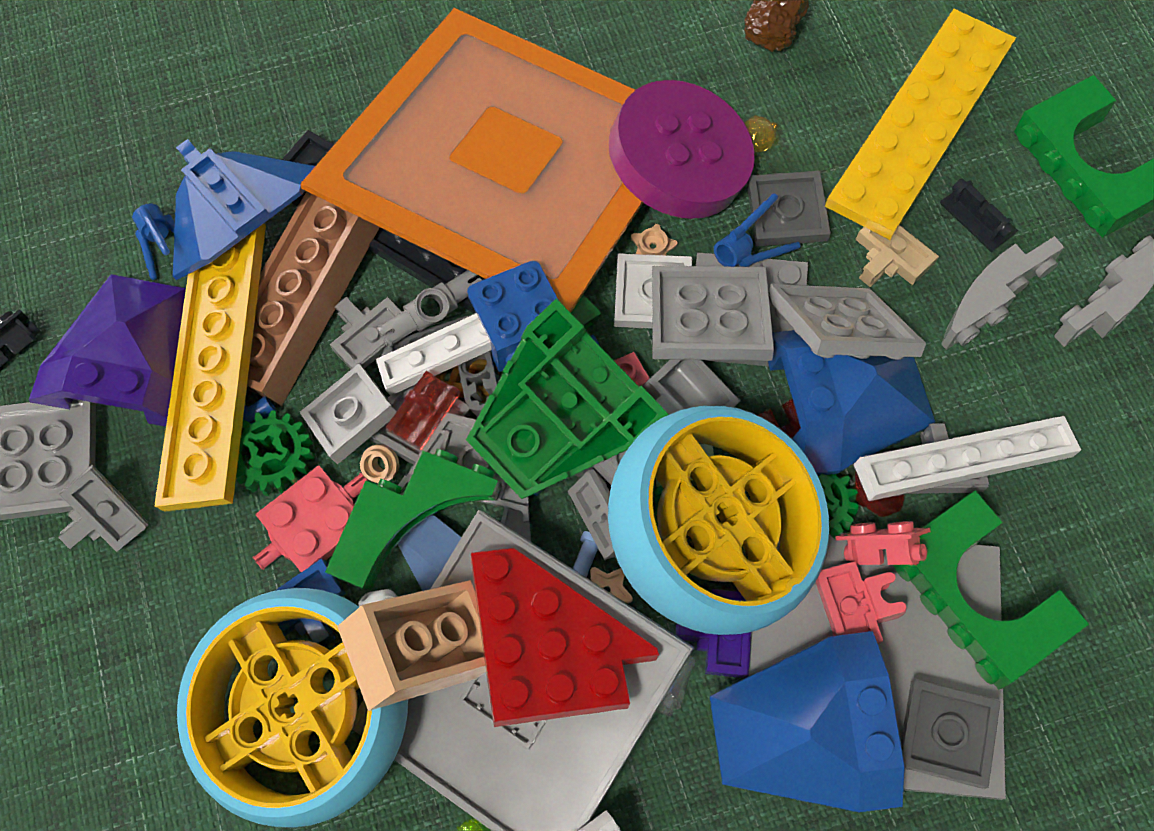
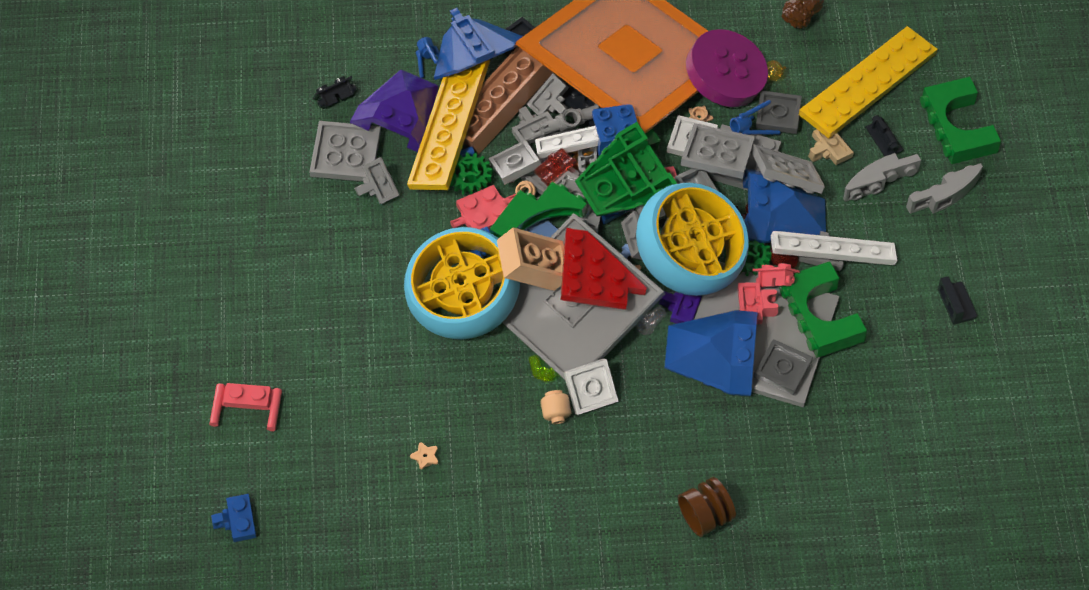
camera: 10 degrees right, 10 degrees down
(386, 271) = (549, 96): none -> light grey hinge

